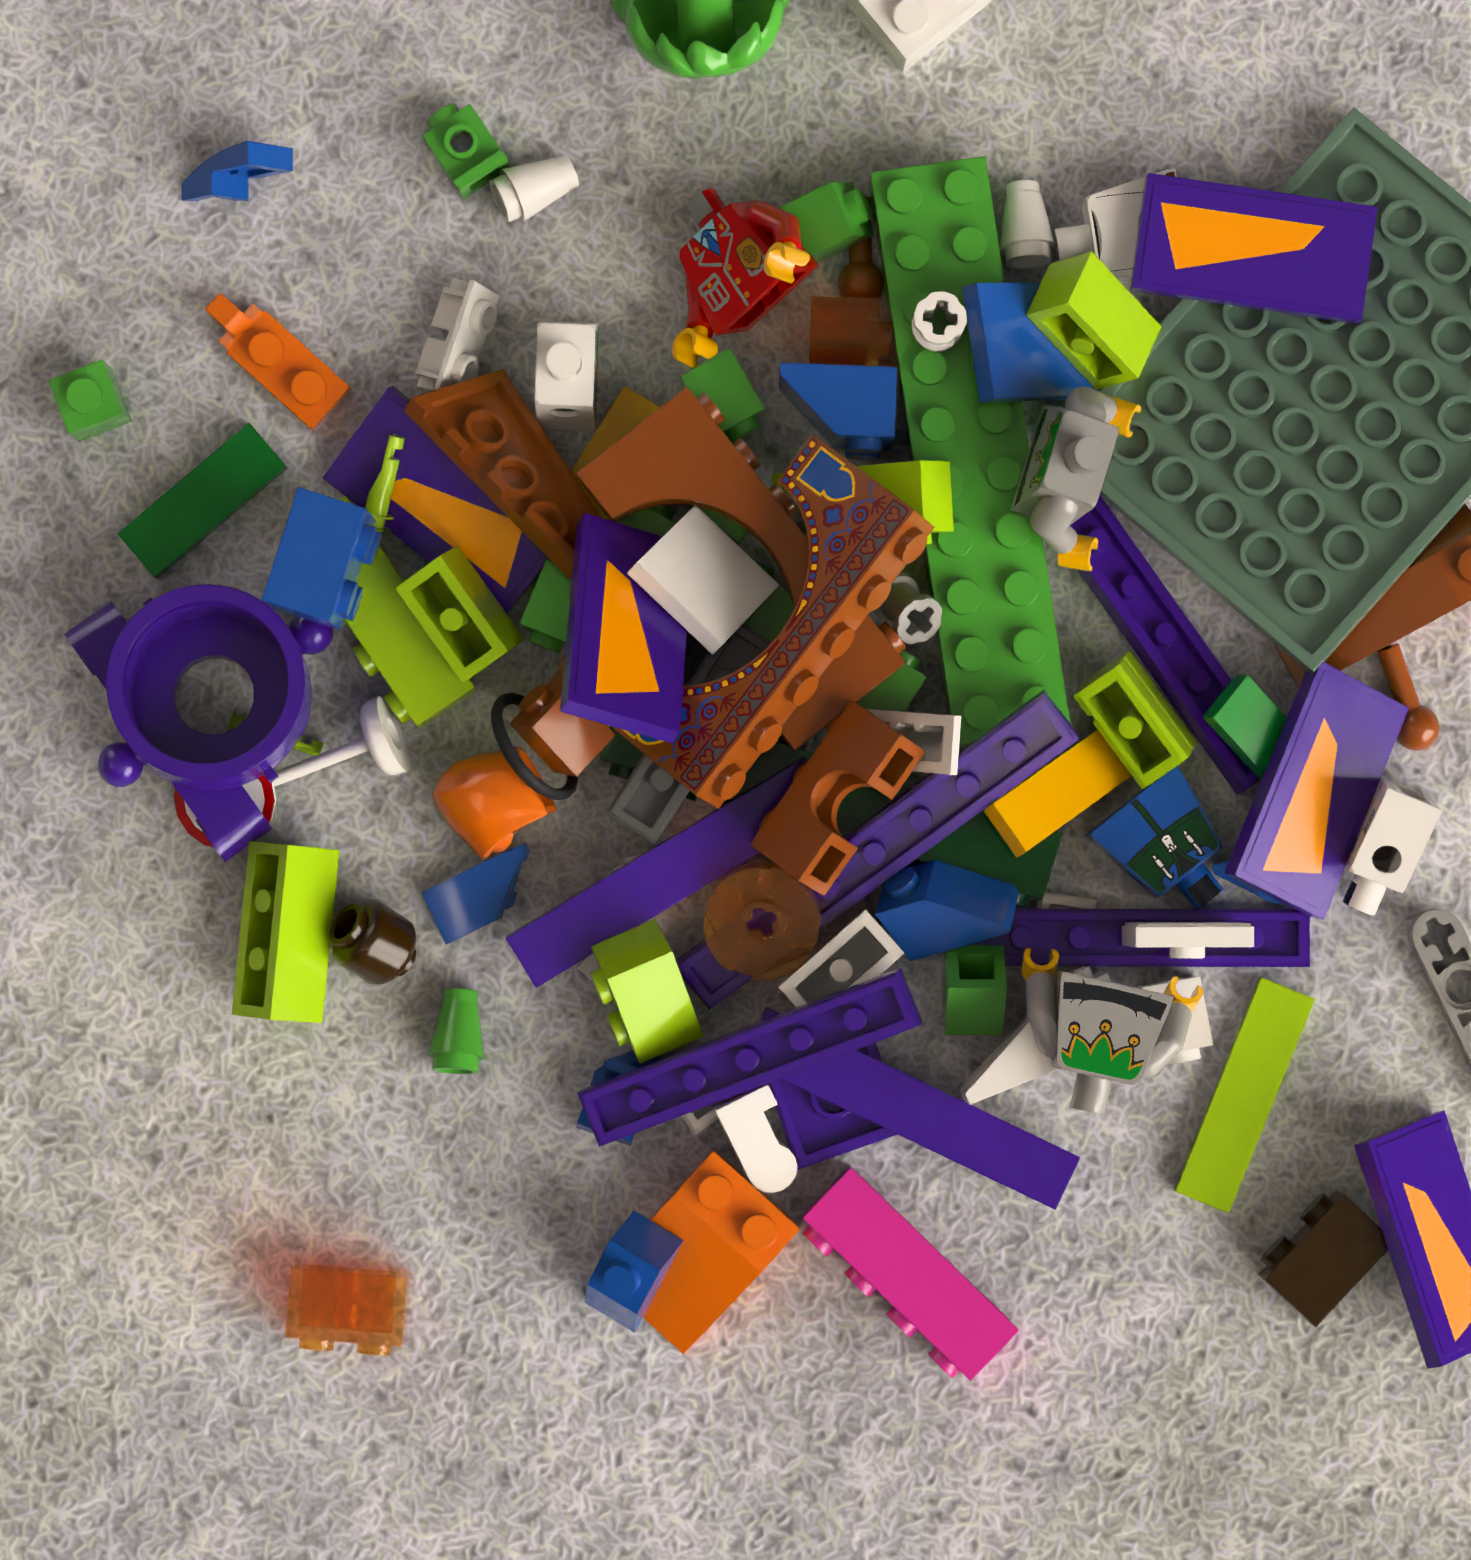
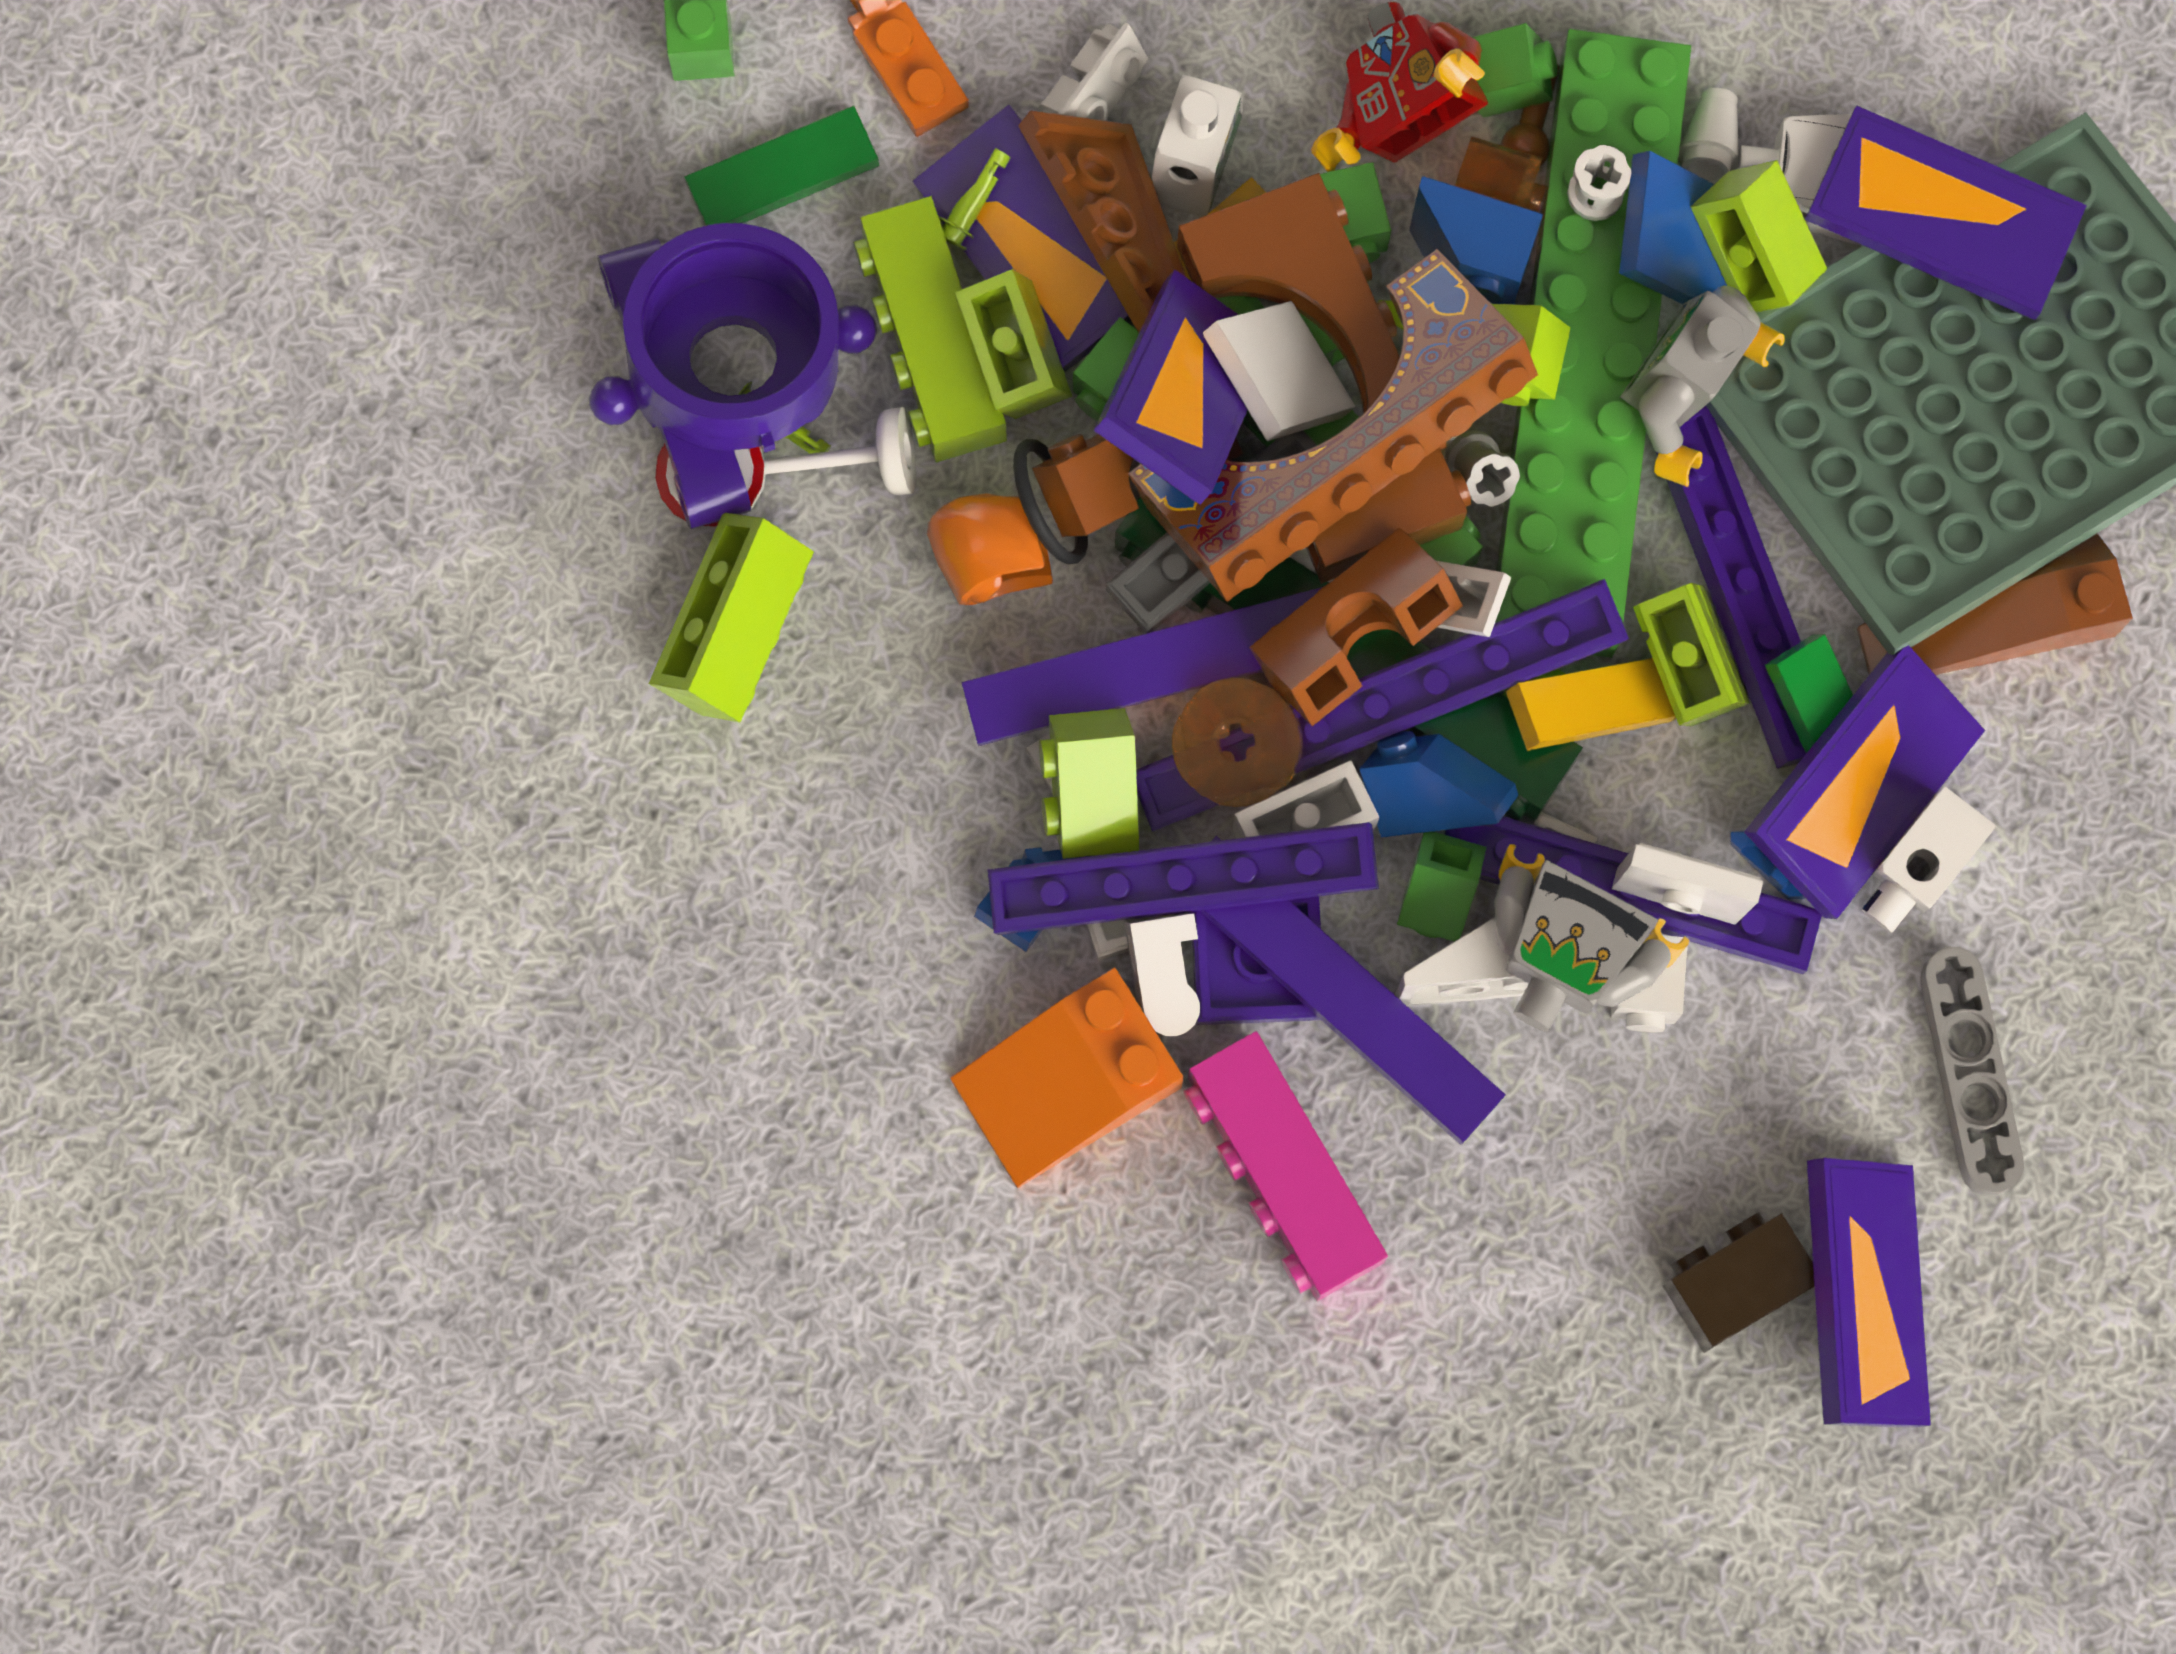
camera: 15 degrees right, 10 degrees down
(322, 559) = (889, 236): blue brick -> none
(348, 1307) = (674, 1027): clear orange brick -> none
(373, 941) = (820, 655): dark brown head -> none
(458, 1034) = (878, 781): bright green cone -> none
(476, 894) = (942, 642): blue slope -> none
(631, 1270) = (986, 1073): blue slope -> none
(1163, 840) = (1684, 788): torso -> none
(1244, 1094) = (1699, 1087): lime tile -> none
(1420, 724) = (1991, 755): dark orange bar -> none

